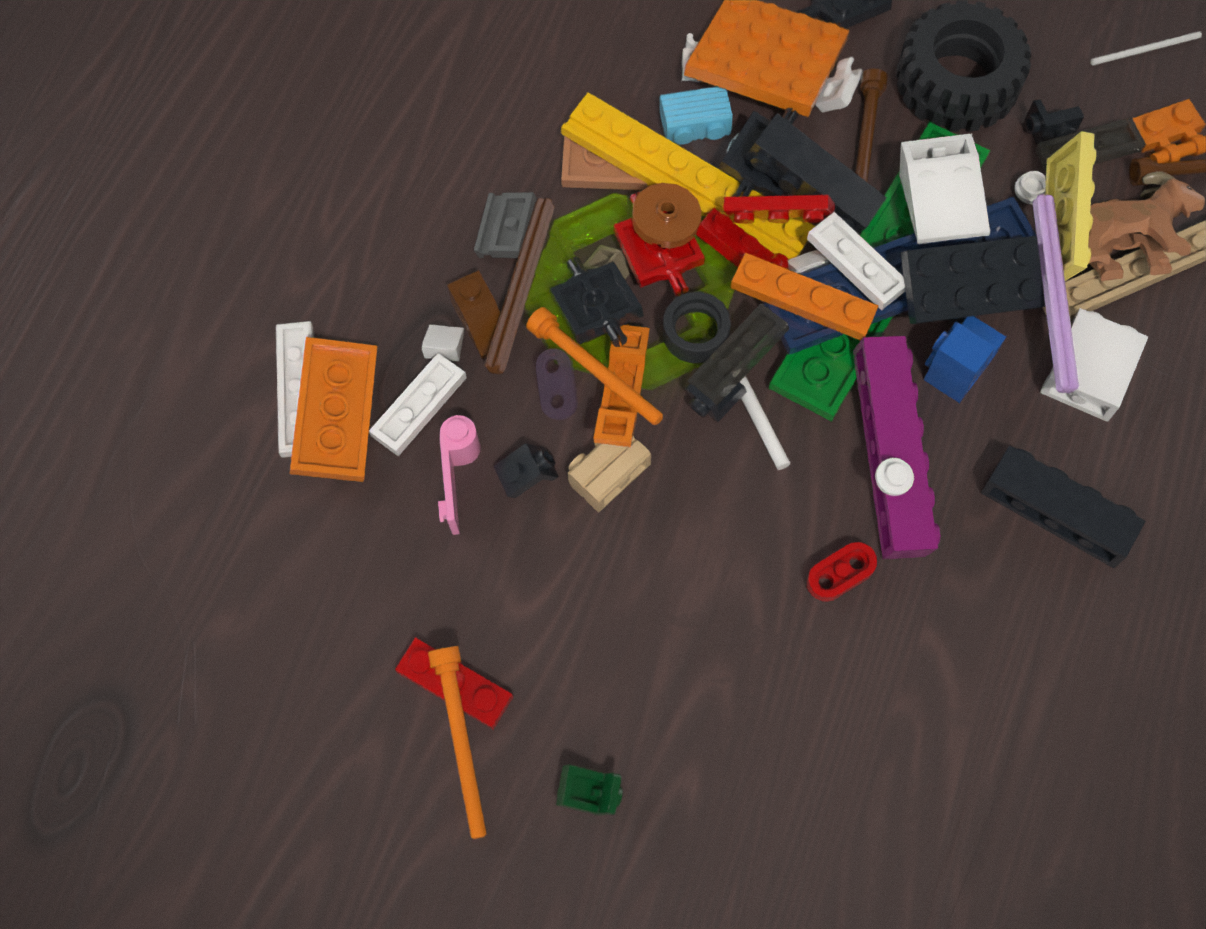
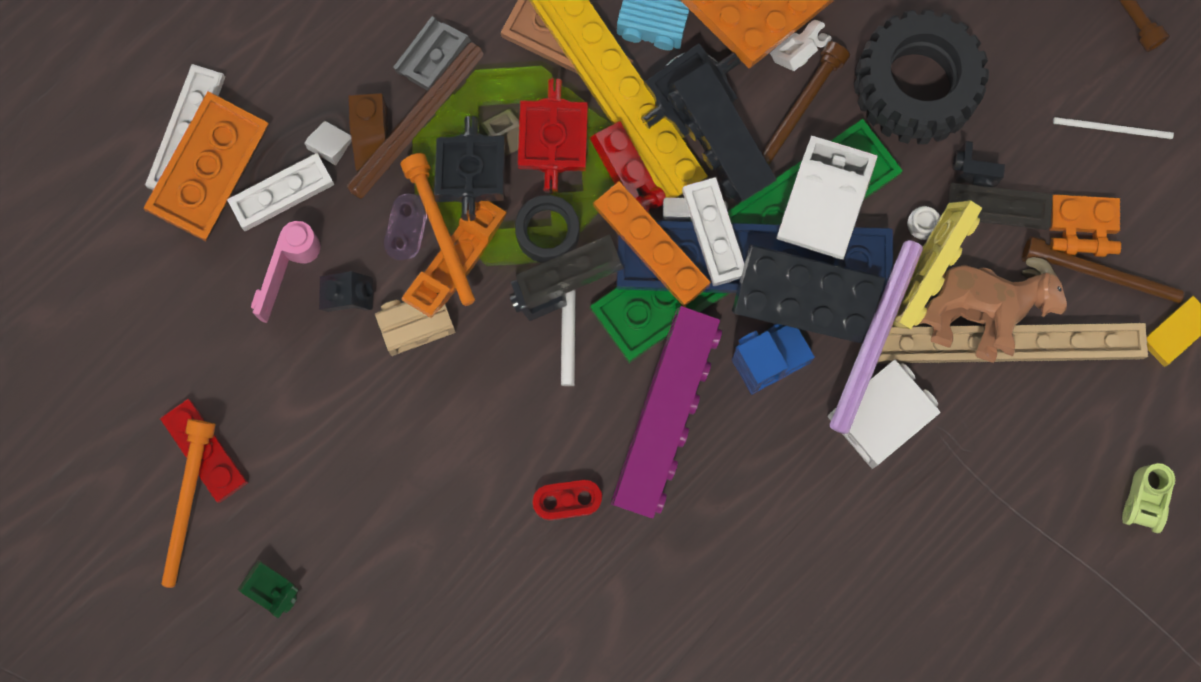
camera: 20 degrees right, 10 degrees up
(661, 228) = (564, 129): dark orange plate -> none
(779, 208) = (670, 151): red plate -> none
(894, 476) = (642, 442): white plate -> none
(1063, 506) = (785, 528): black brick -> none

